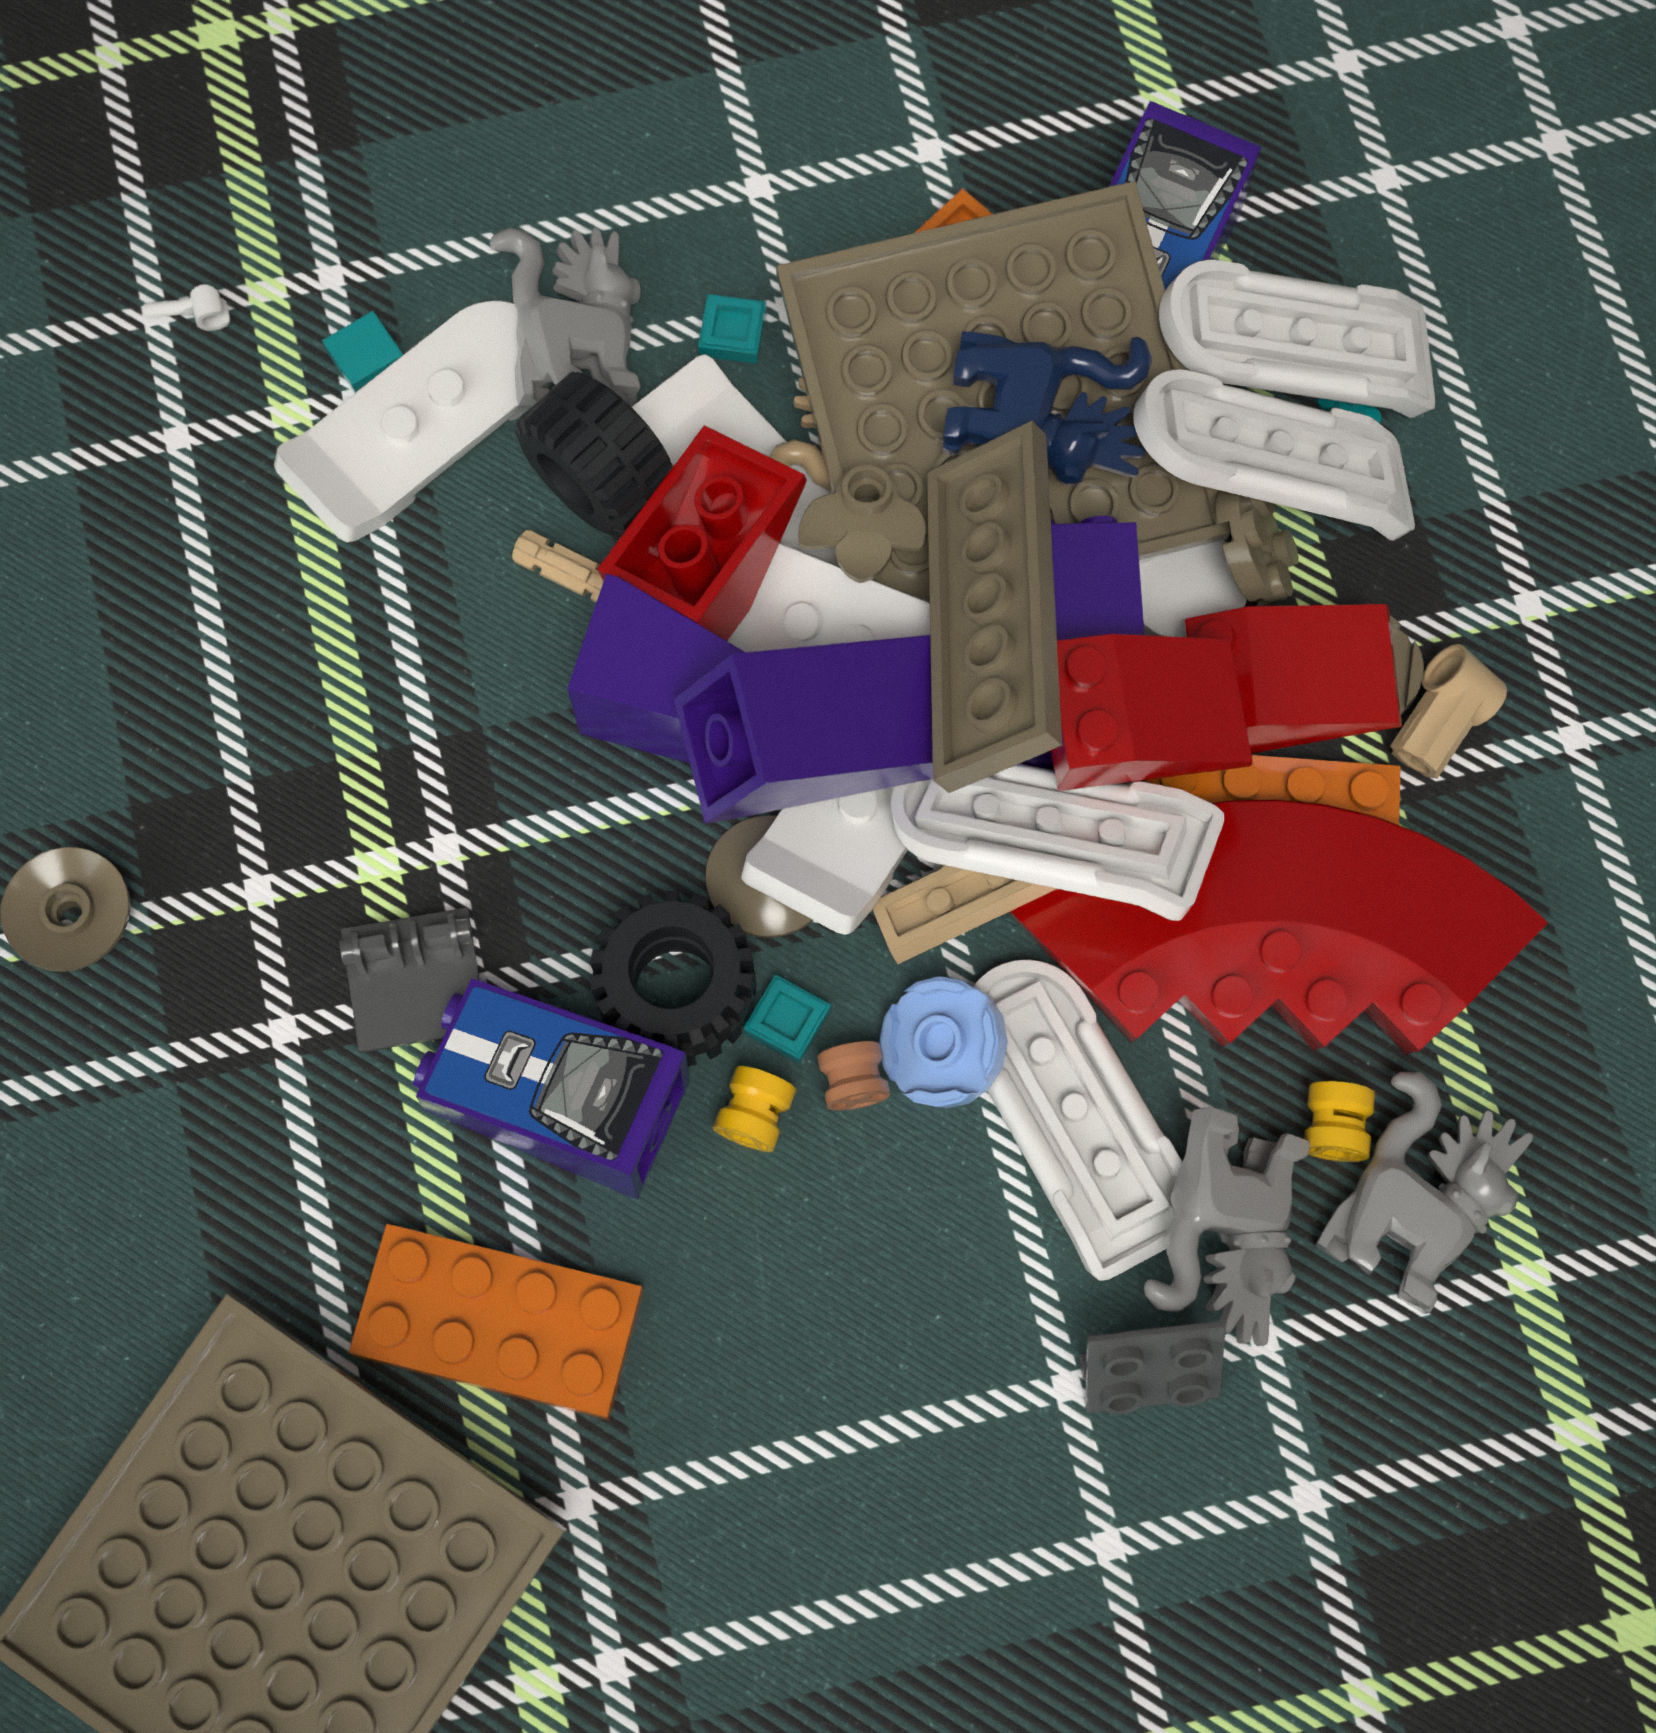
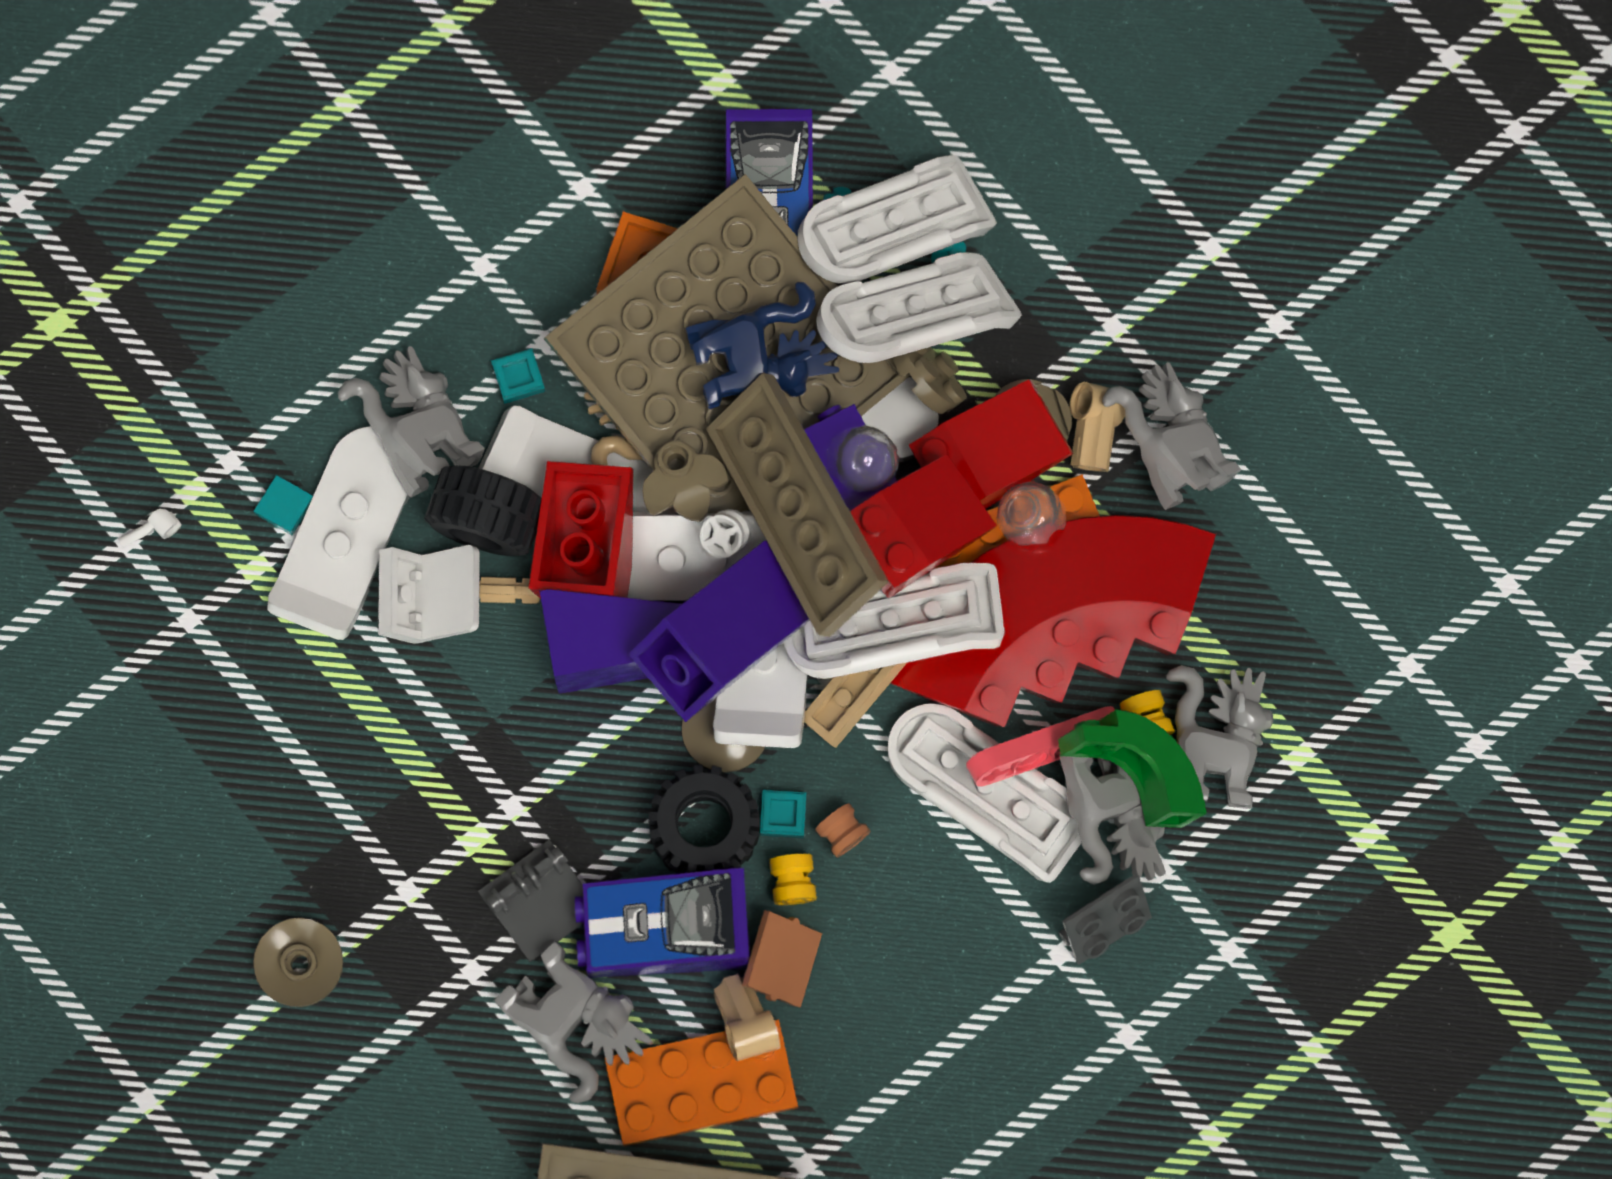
camera: 30 degrees left, 5 degrees up
(364, 1132) = (563, 1009): none -> light grey animal
(470, 530) = (428, 593): none -> white bracket
(591, 1268) = (747, 1025): none -> tan piece
(685, 1206) = (782, 959): none -> nougat piece
(871, 600) = (718, 540): none -> white wheel
(943, 1042) = (887, 783): light blue tile -> none
(1113, 591) = (863, 458): none -> clear hair
(1177, 1089) = (1024, 751): none -> coral beam
(1306, 777) = (1030, 513): none -> clear hair
(1319, 1173) = (1152, 759): none -> green arch
(1554, 788) = (1178, 453): none -> light grey animal

